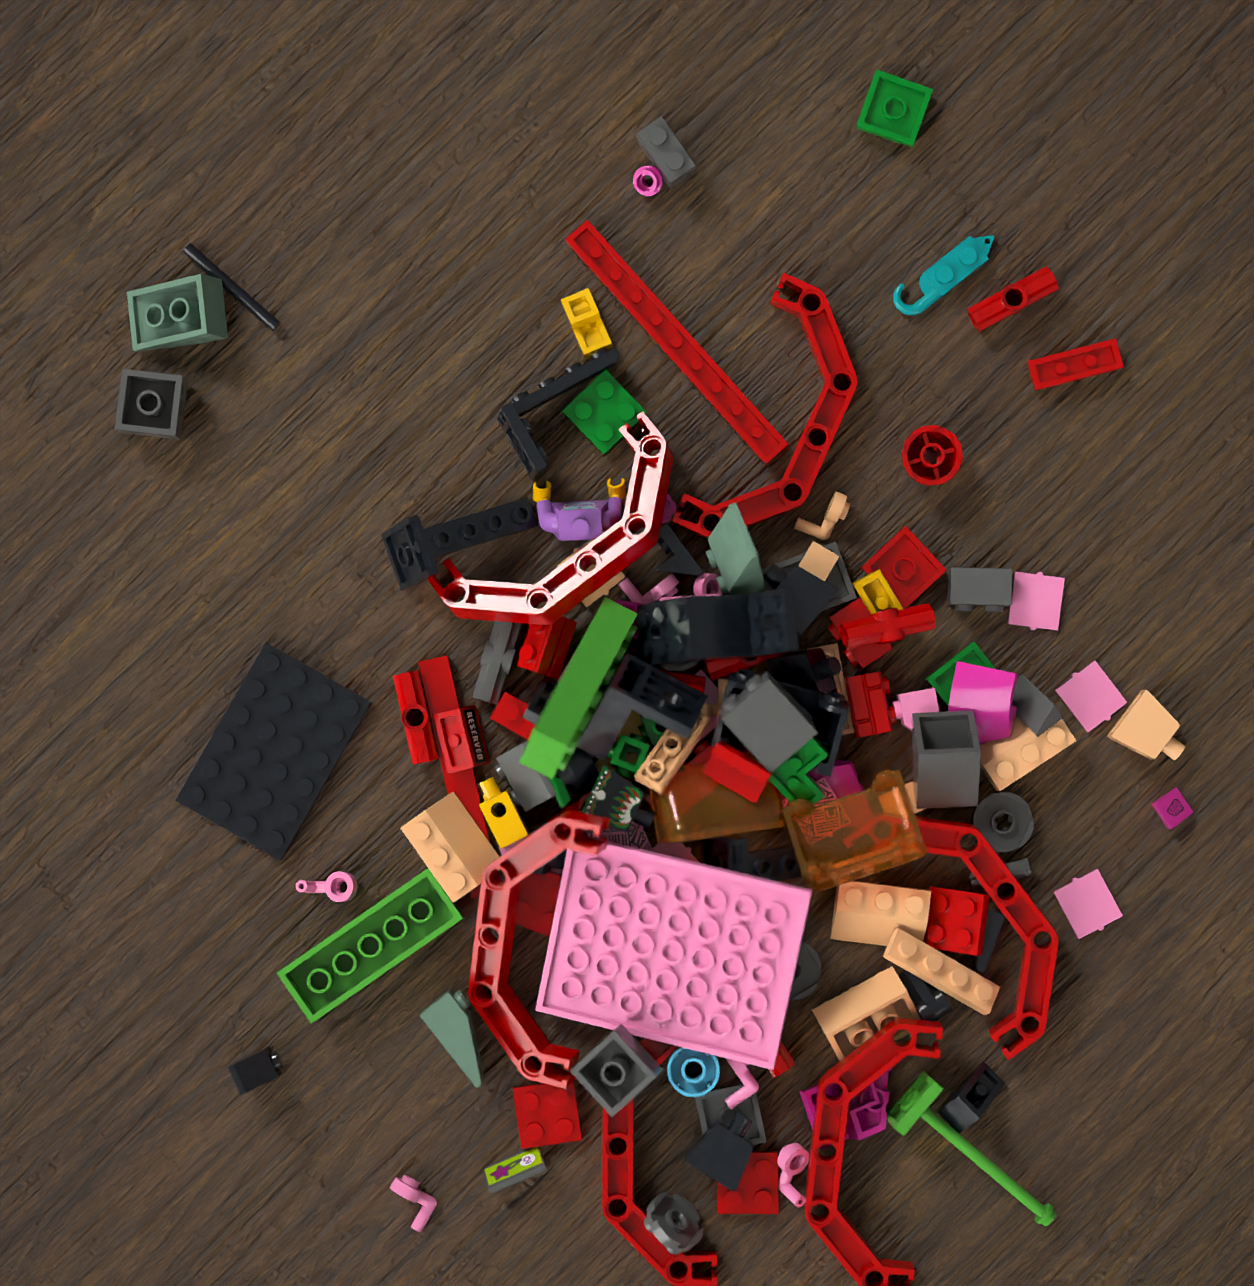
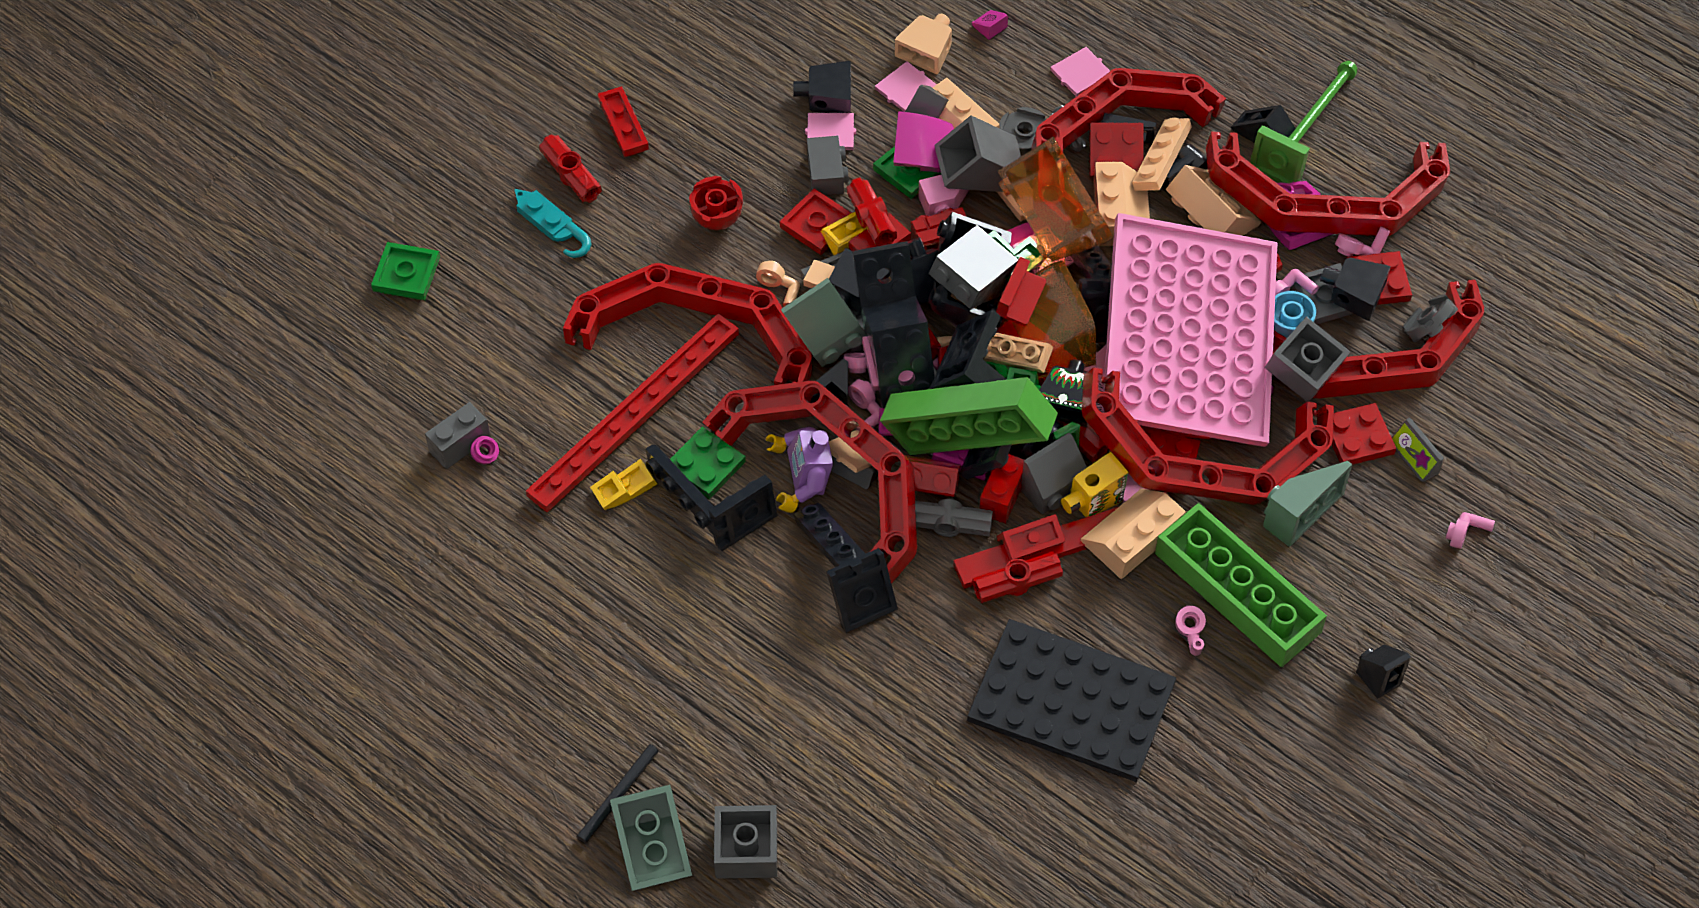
camera: 100 degrees left, 30 degrees down
(1092, 604) = (827, 88): none -> black torso

